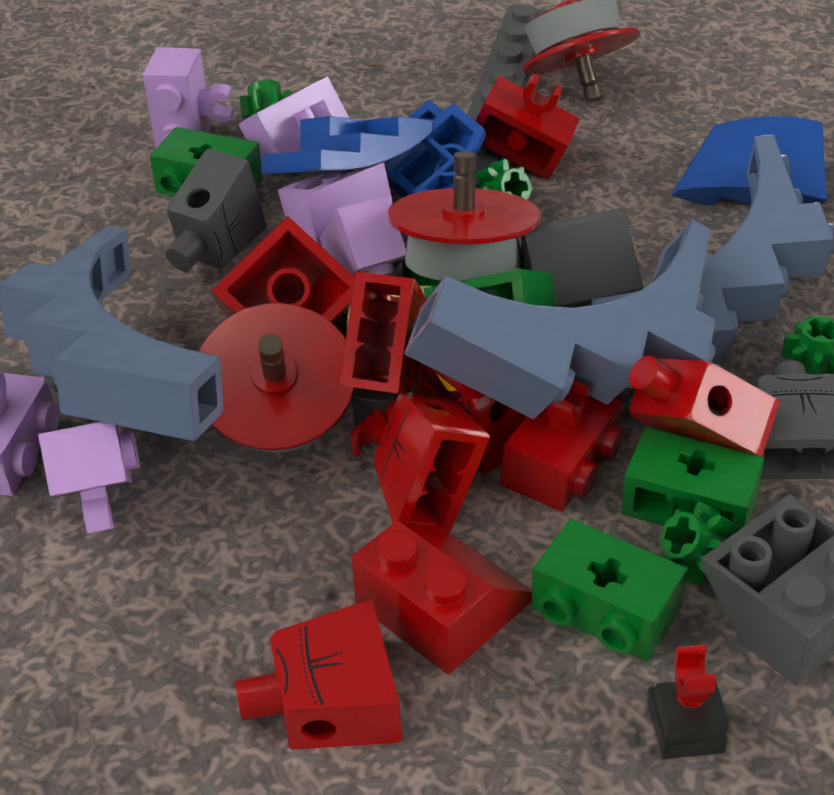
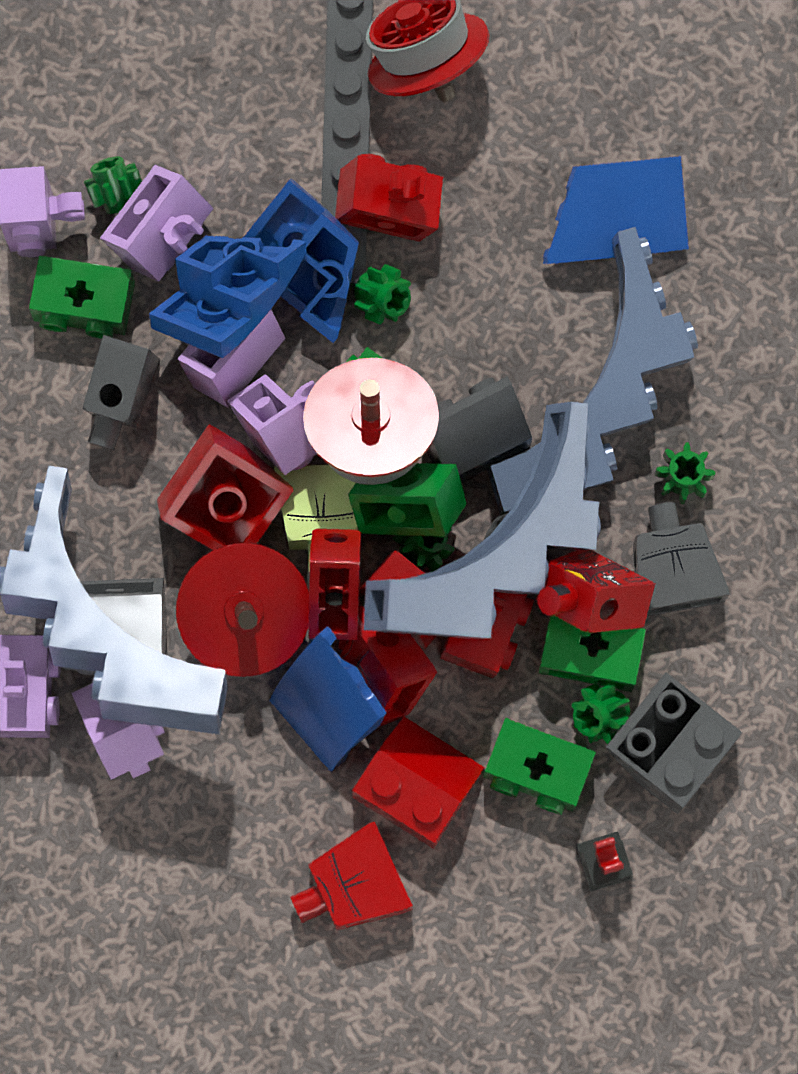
camera: 15 degrees left, 35 degrees up
(347, 462) = (327, 701): none -> blue slope

